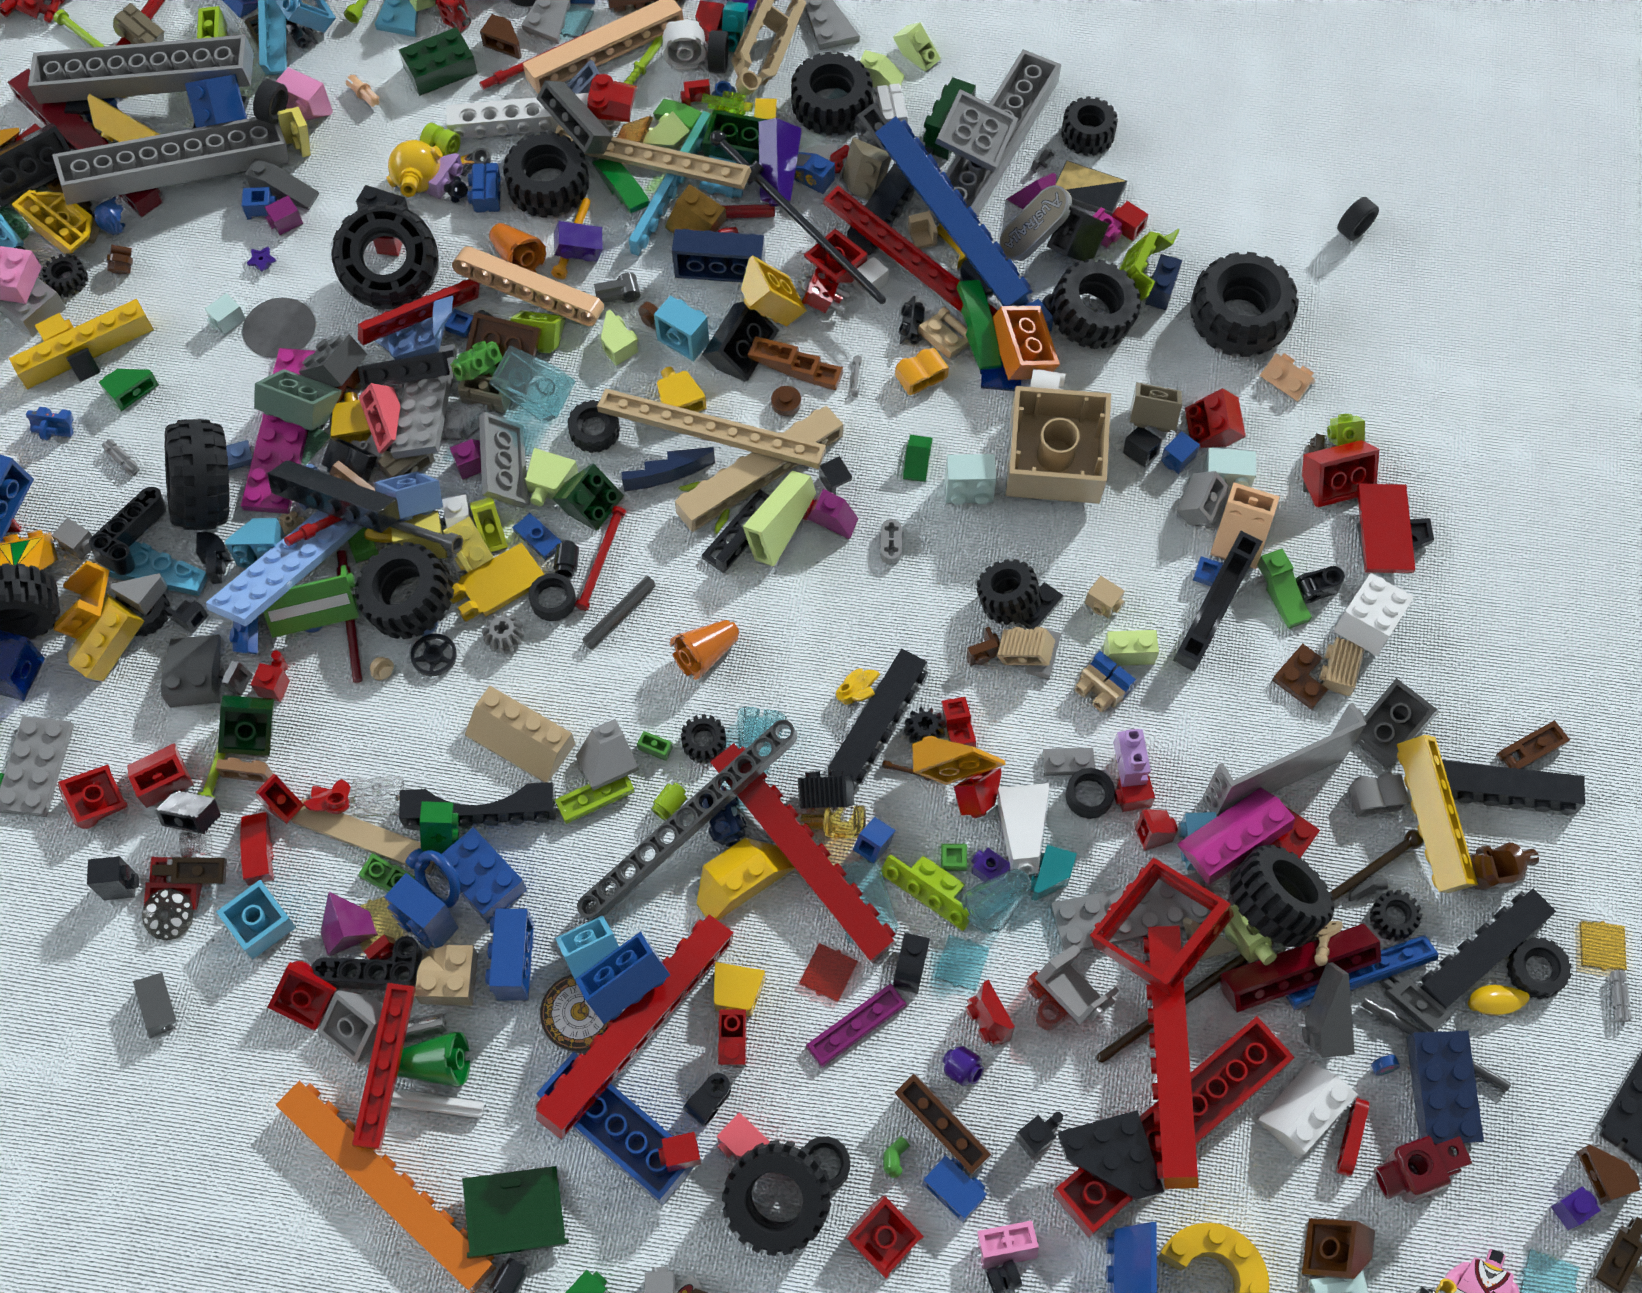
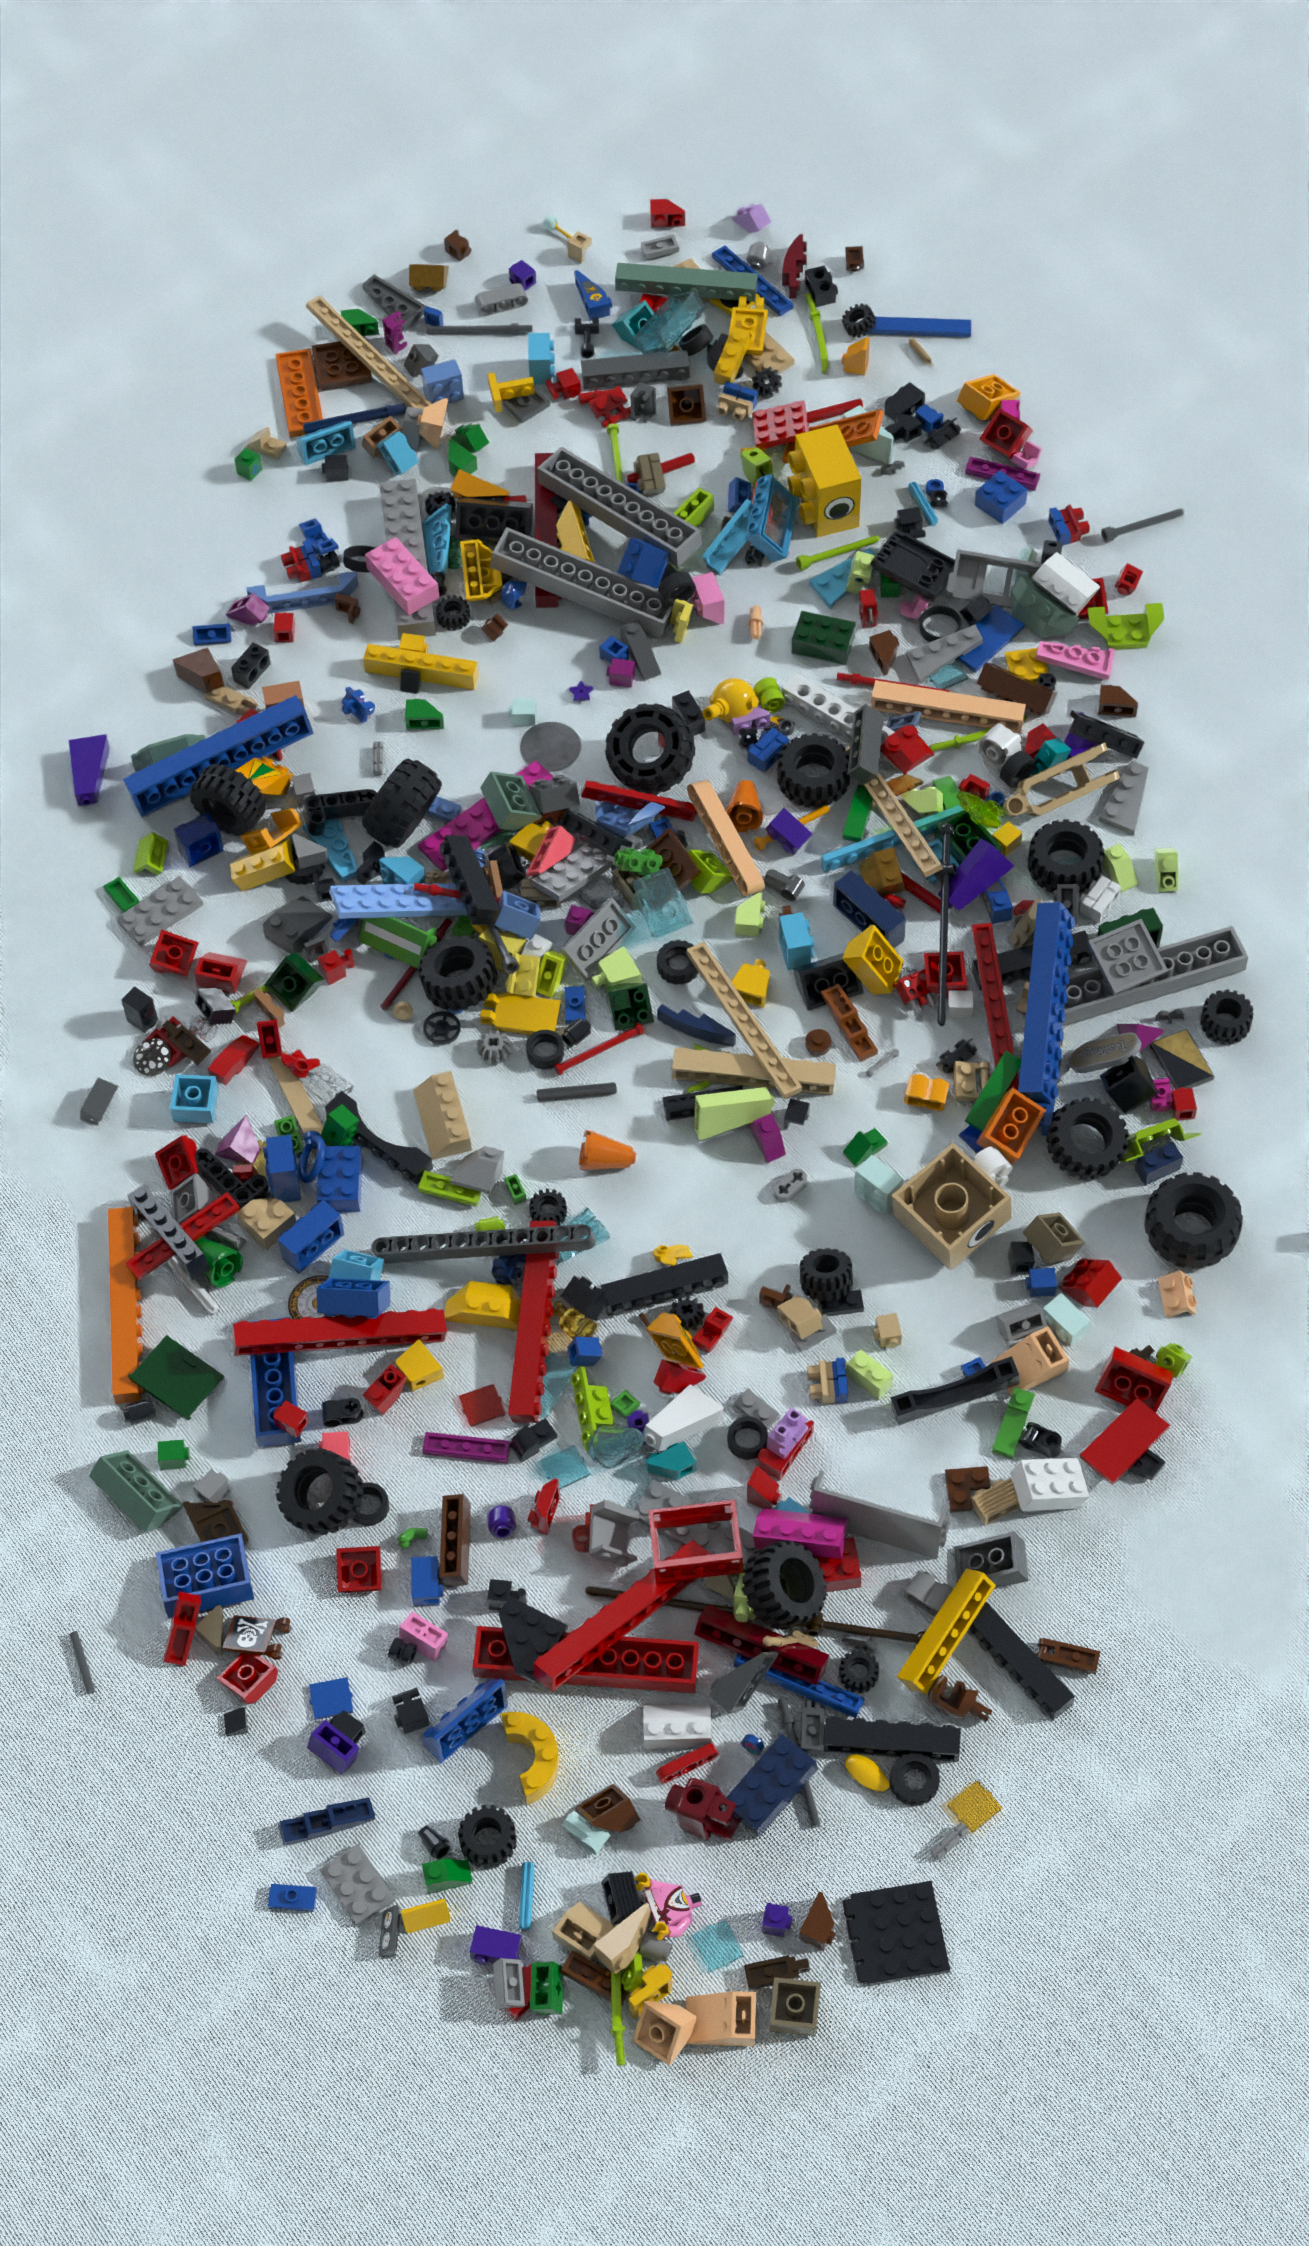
camera: 45 degrees right, 5 degrees down
(387, 1075) = (180, 1244): none -> arch

